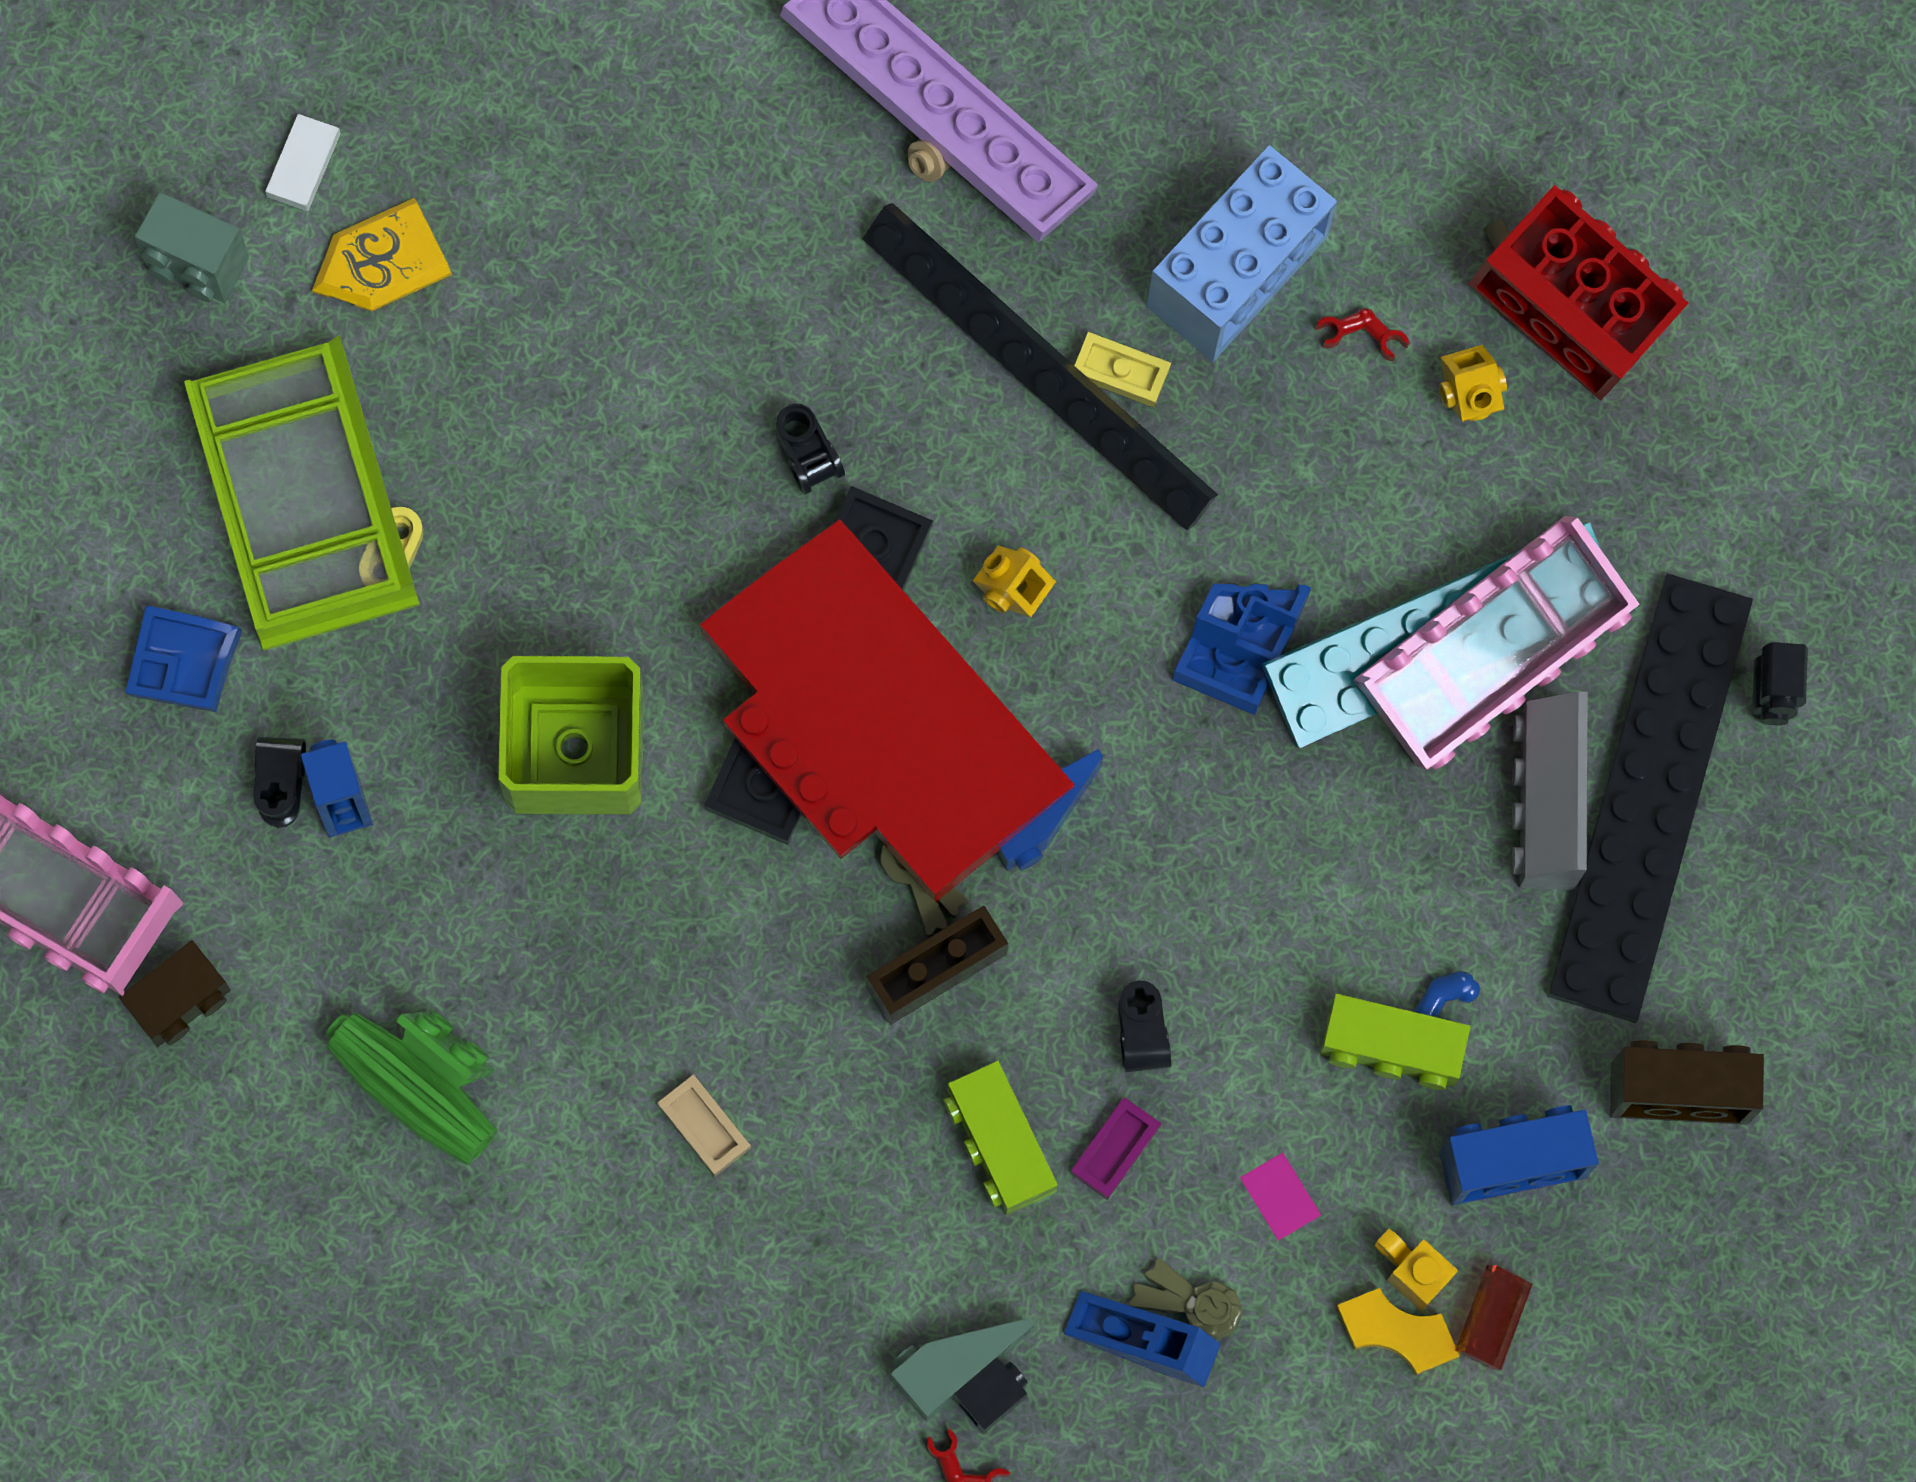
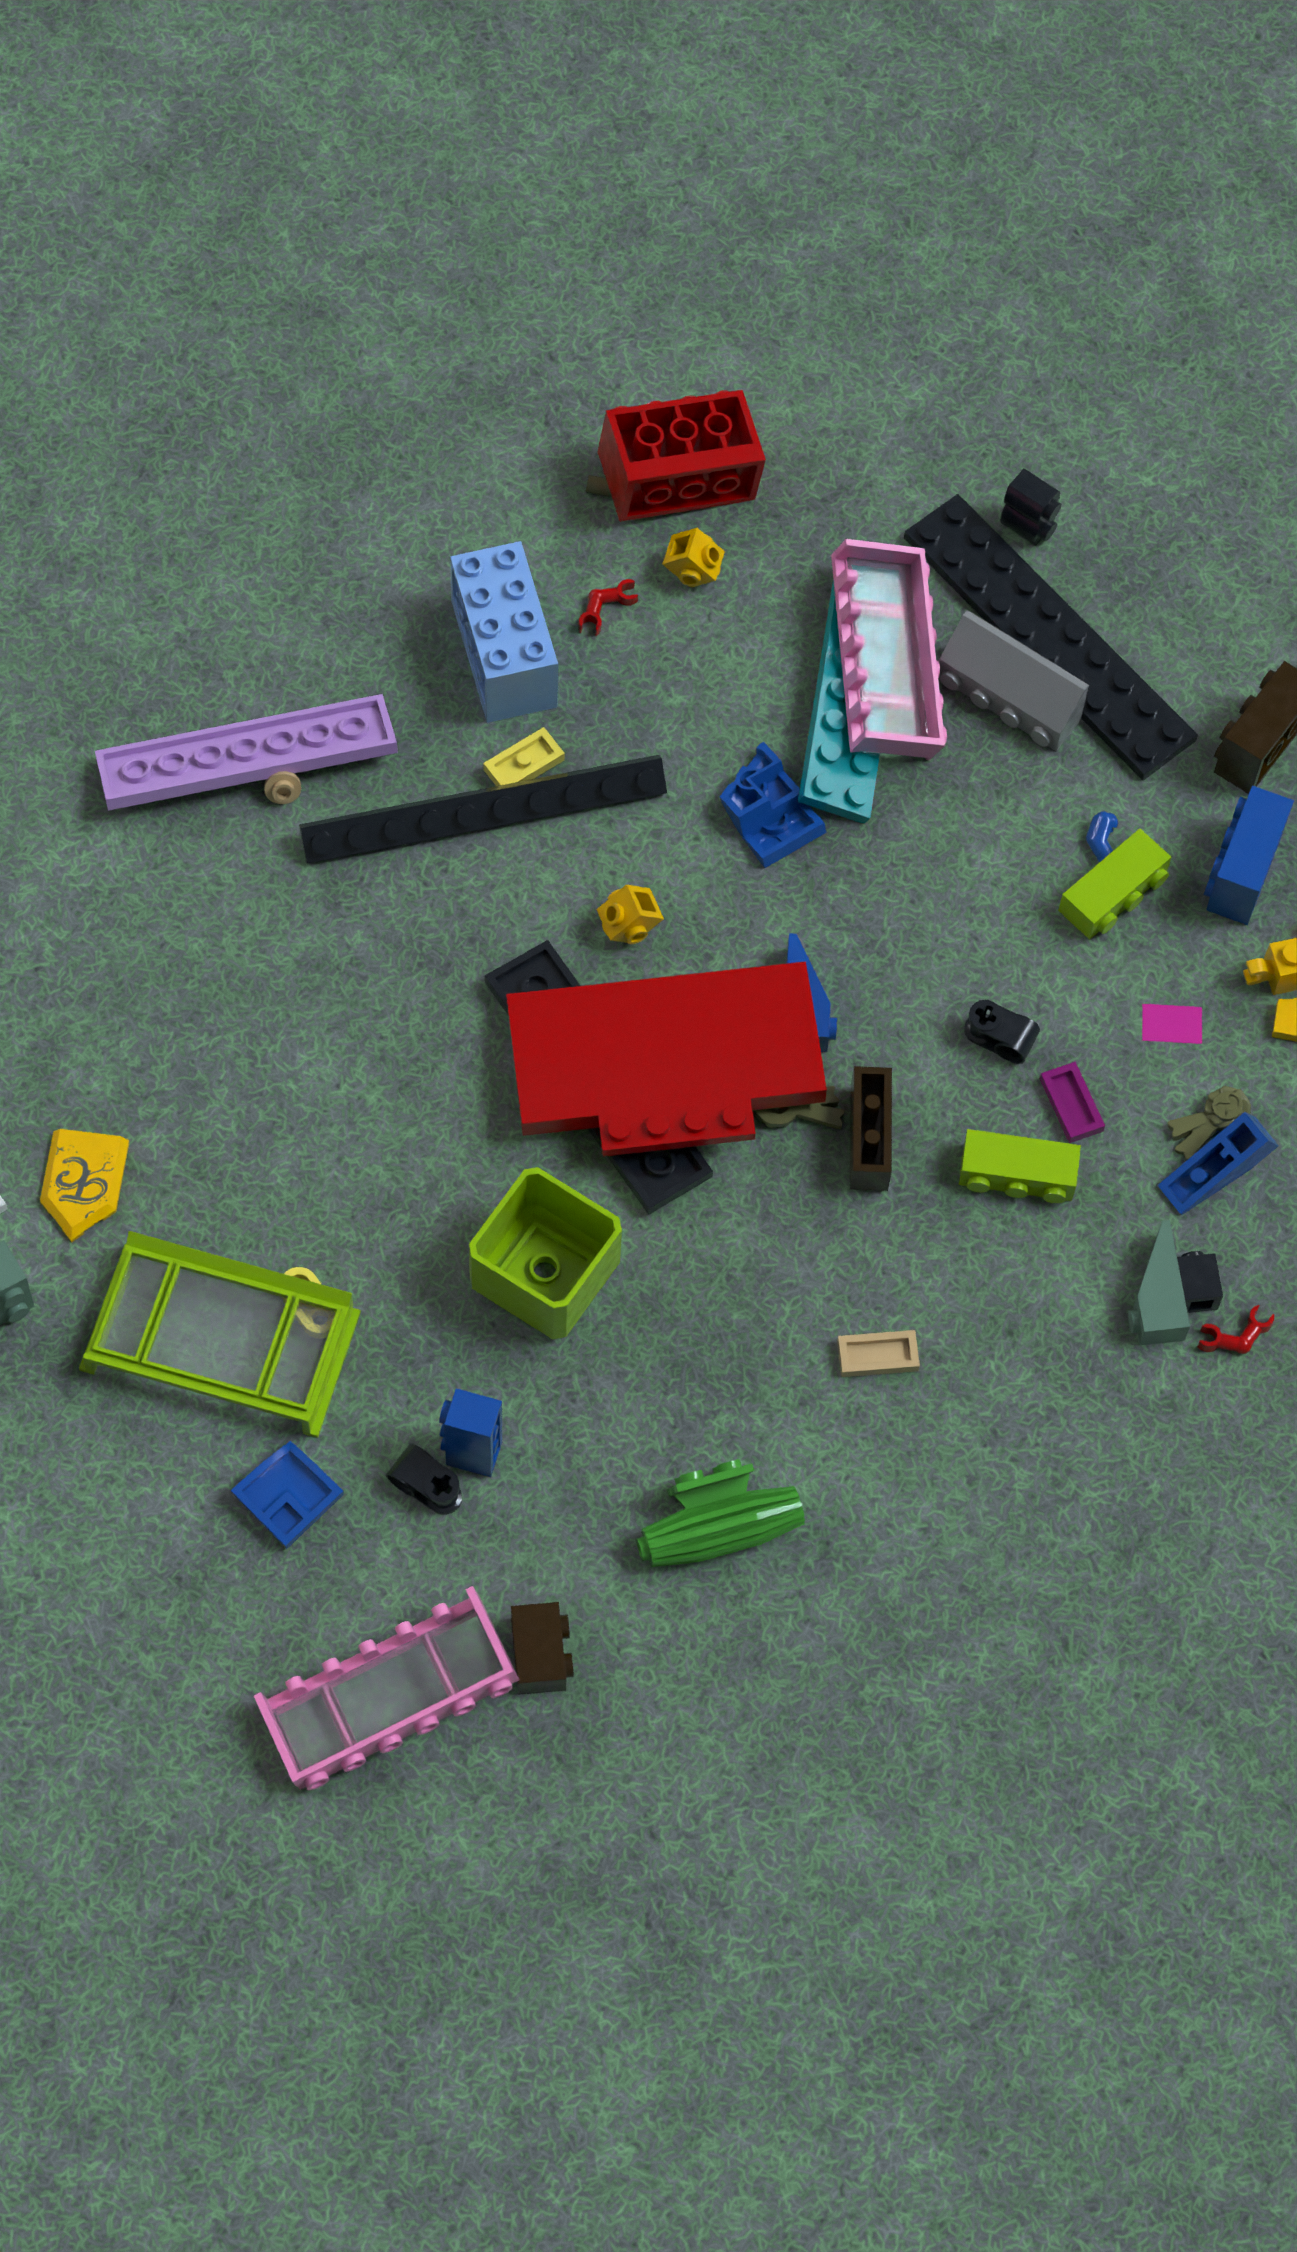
camera: 55 degrees left, 10 degrees down
(808, 456) = (437, 988): black piece -> none

